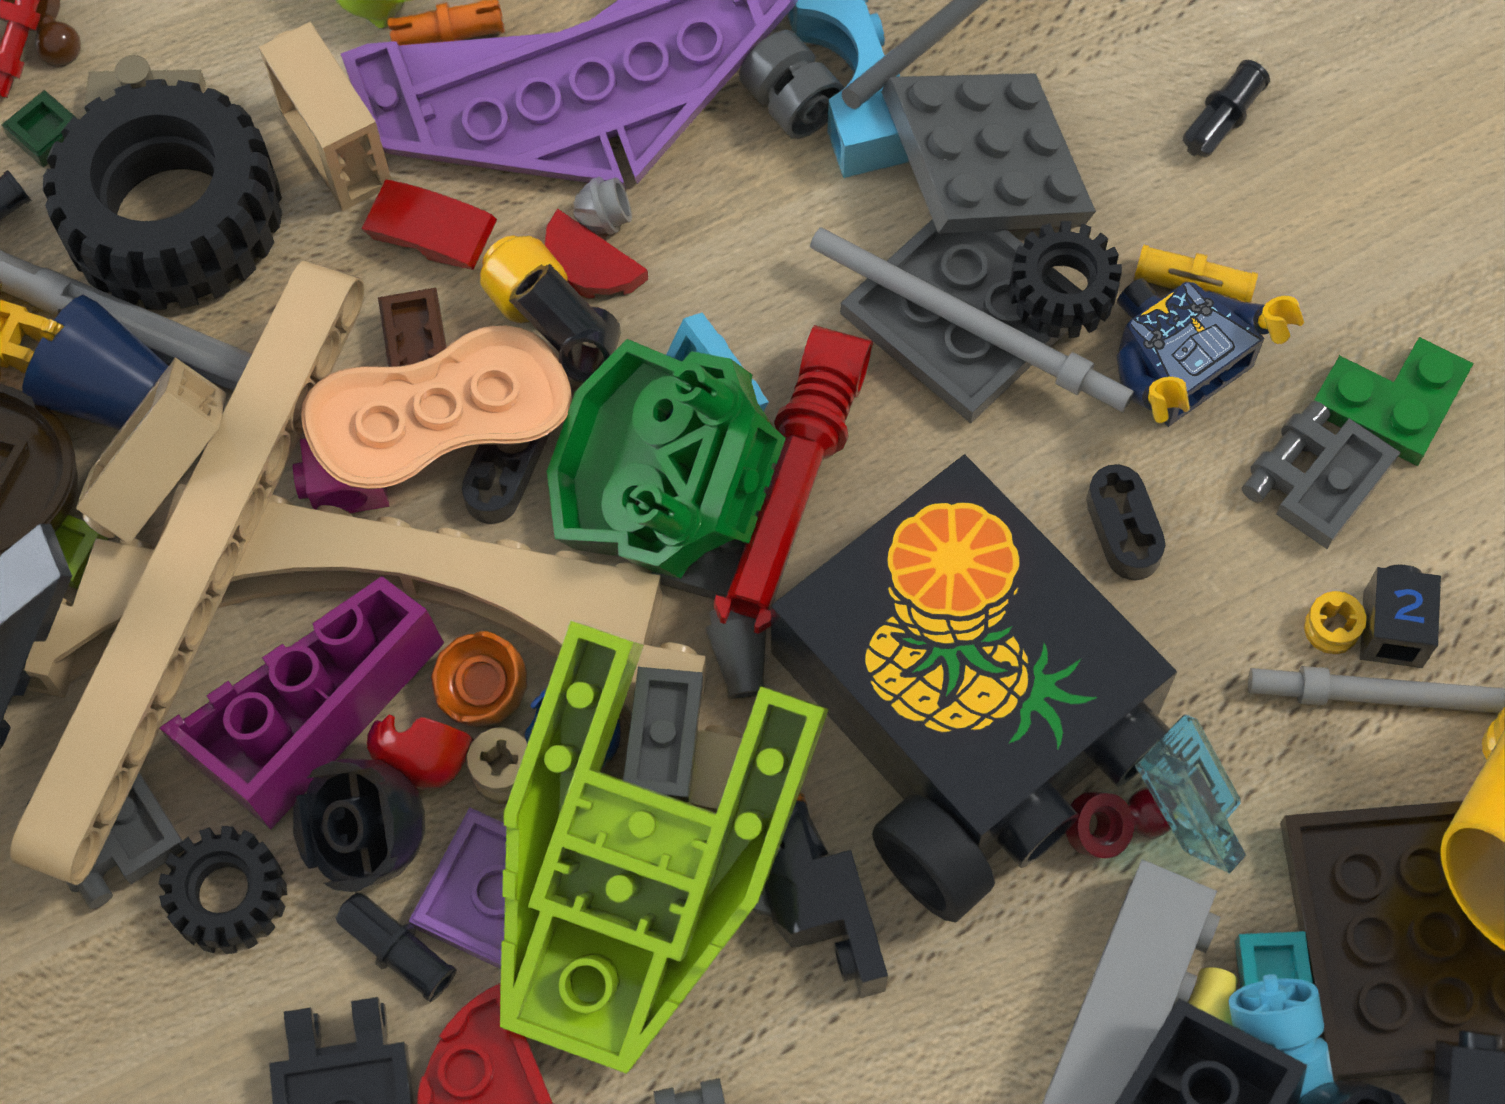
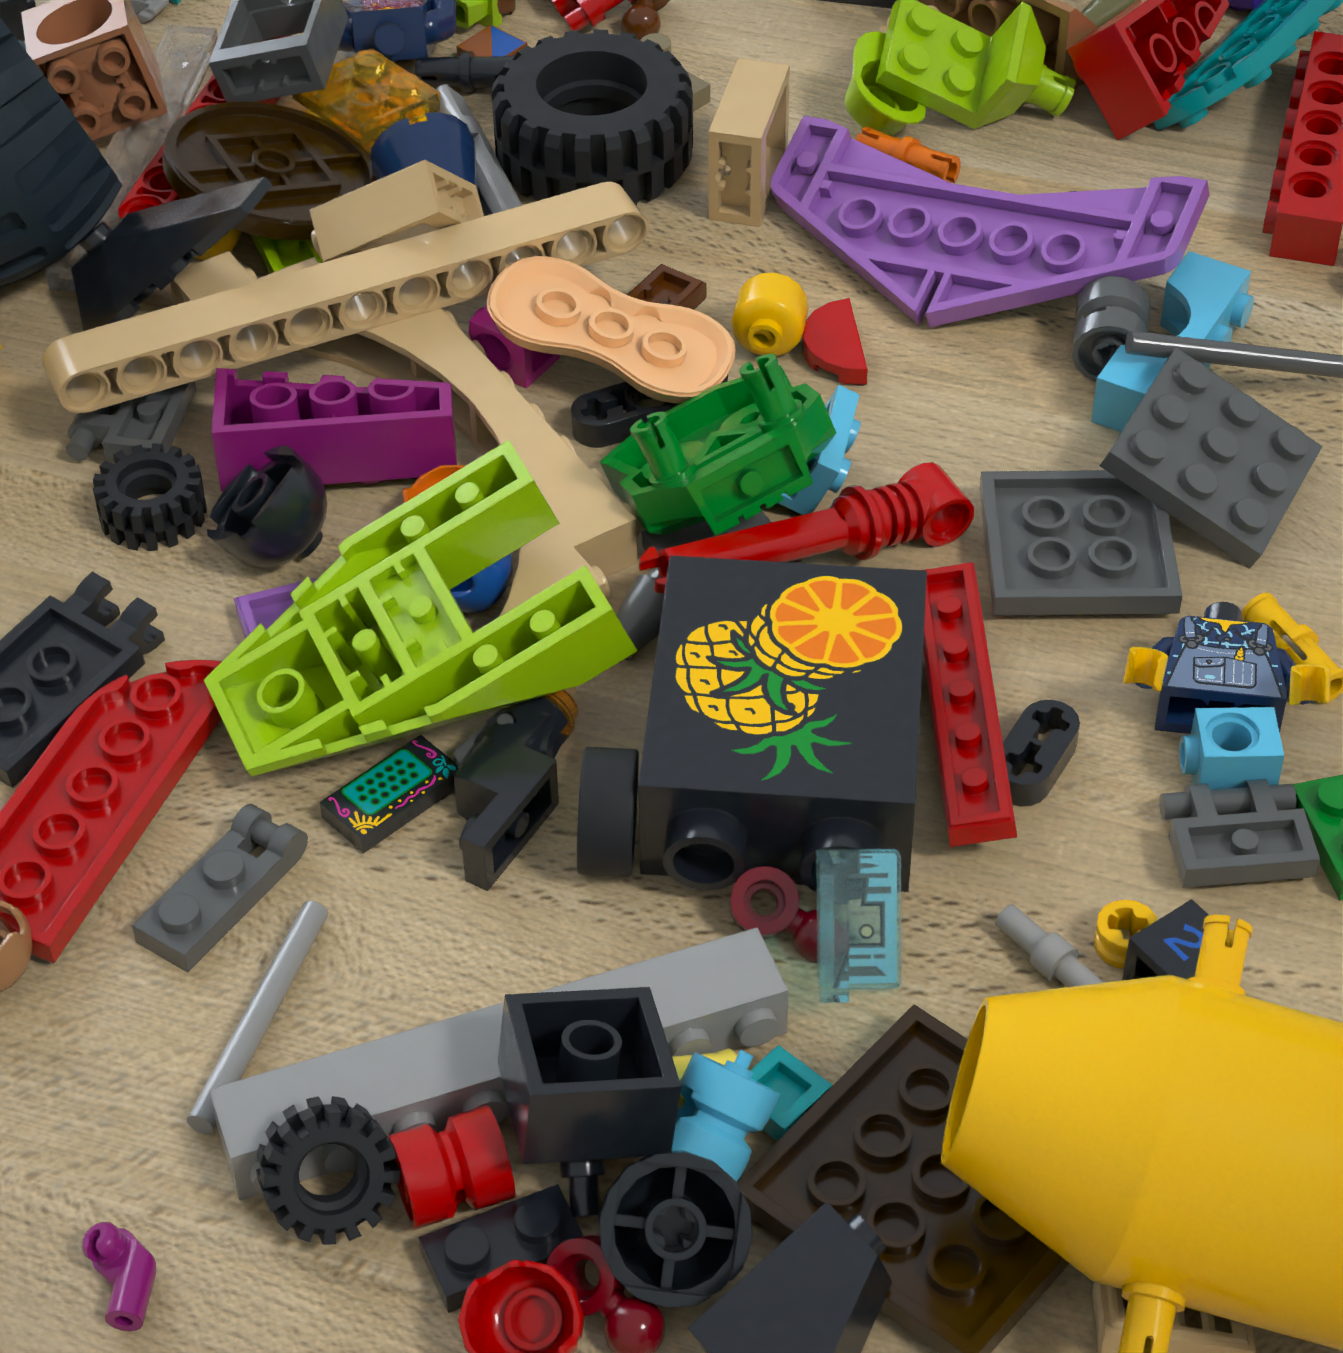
camera: 45 degrees right, 20 degrees down
(395, 946) = (208, 607): black axle -> none
(425, 752) = (353, 496): red hair -> none
(429, 222) = (748, 246): red slope -> none
(567, 321) = (762, 331): black piece -> none
(602, 206) = (884, 315): light grey plate -> none
(664, 731) = (510, 582): dark grey plate -> none
(734, 990) = (390, 793): none -> tile
(1072, 251) = (1161, 581): black tyre -> none
(1072, 372) = (1099, 616): light grey bar -> none
(1140, 592) = (965, 710): none -> red tile
(1261, 387) = (1232, 747): none -> medium azure brick

